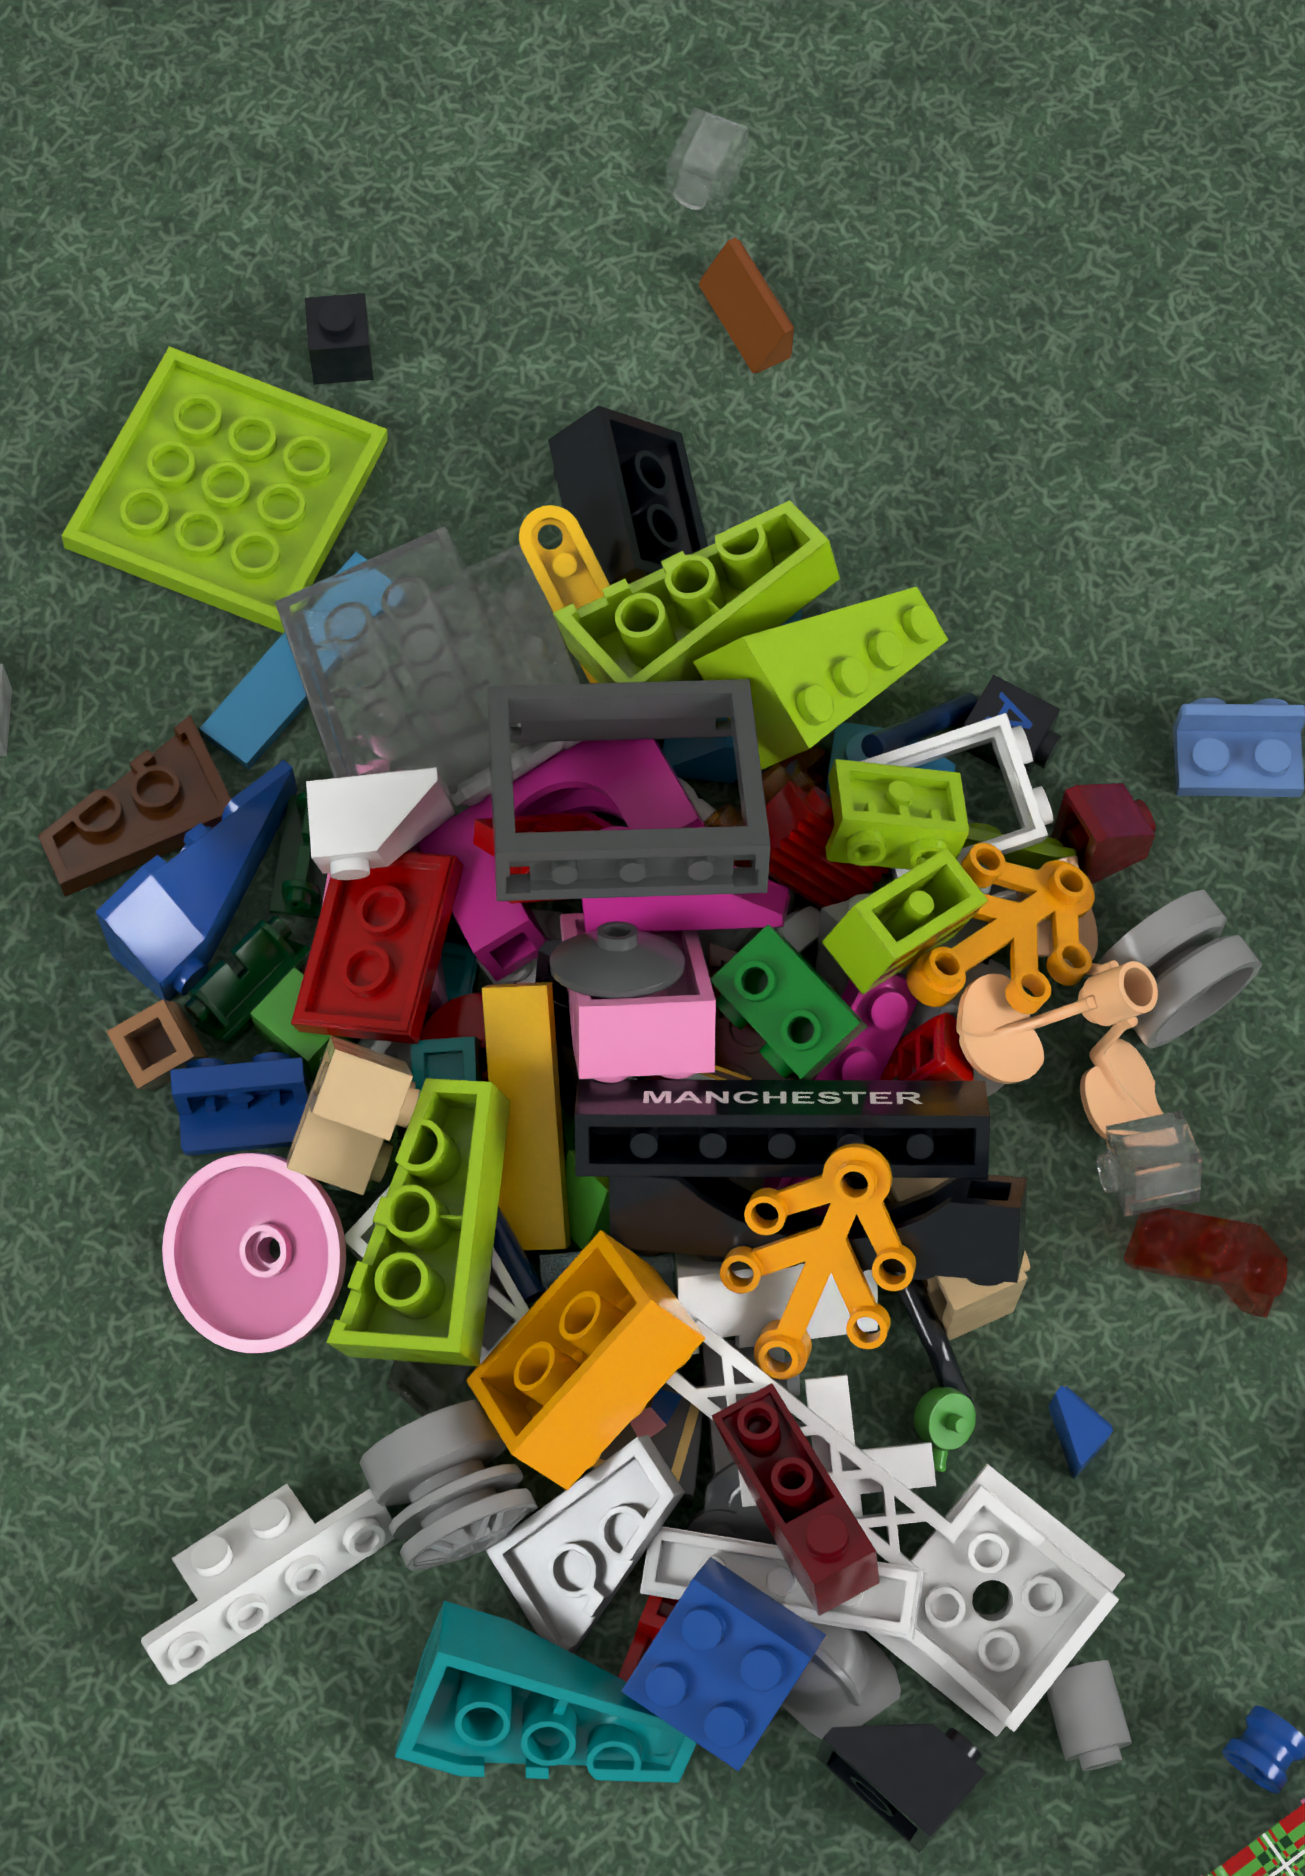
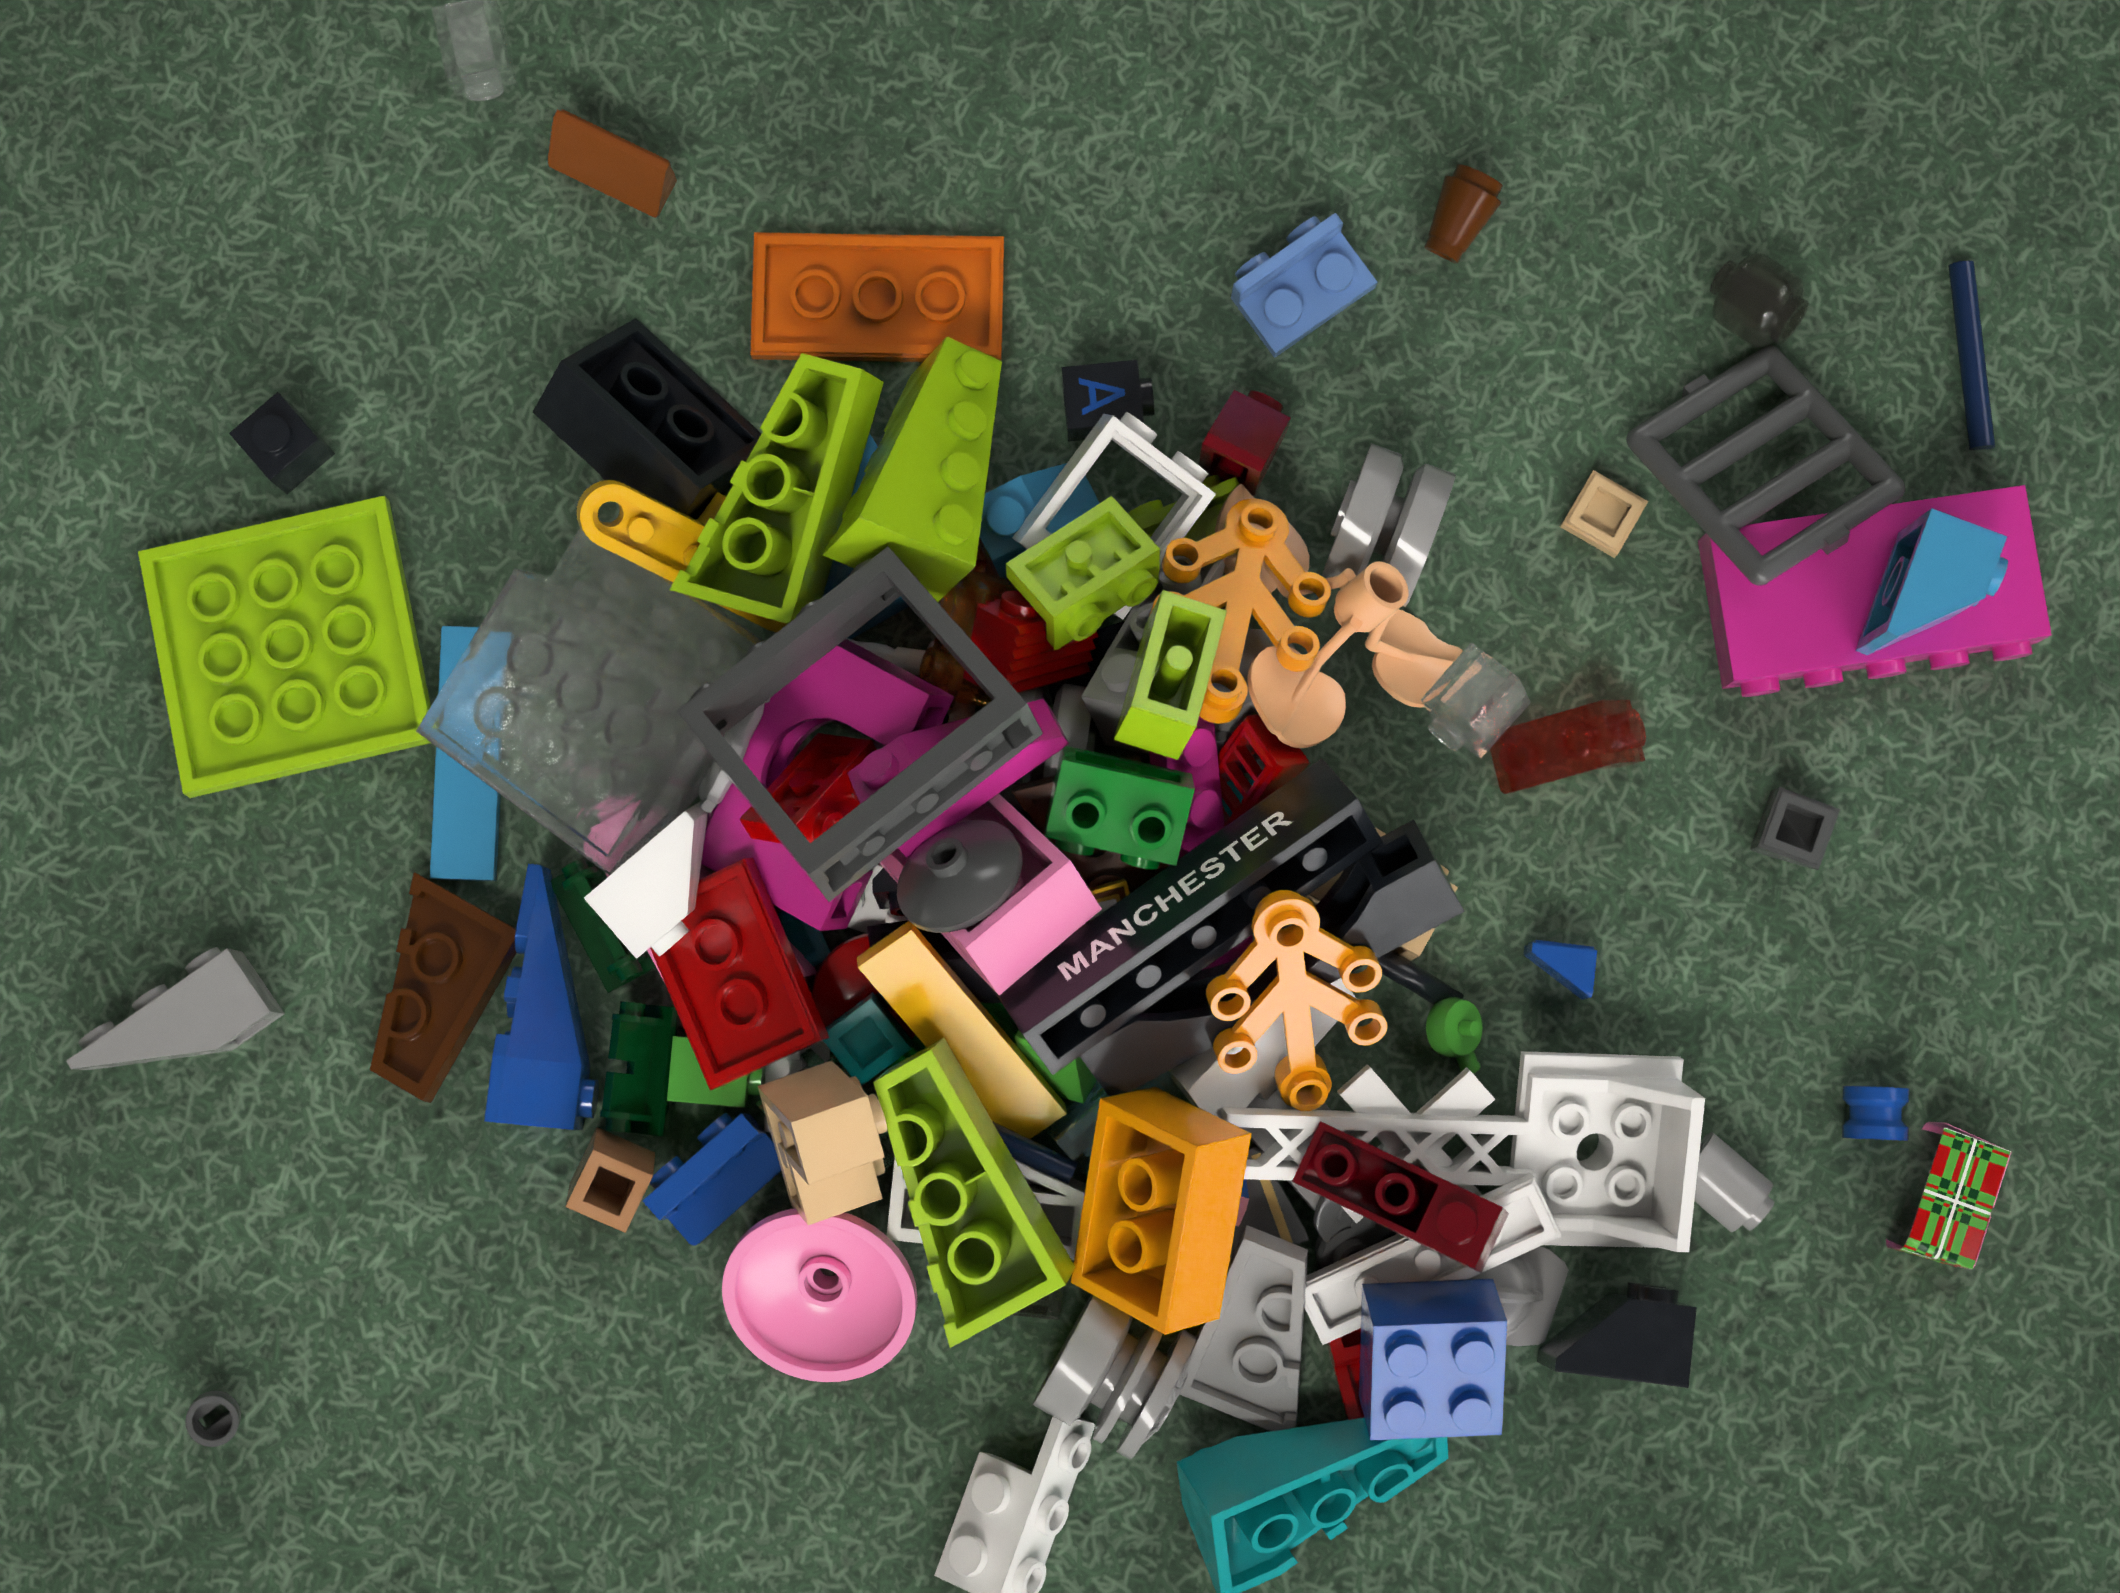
camera: 30 degrees left, 15 degrees up
(892, 535) = (875, 295): none -> orange tile
(919, 726) = (1034, 458): dark blue bar -> none

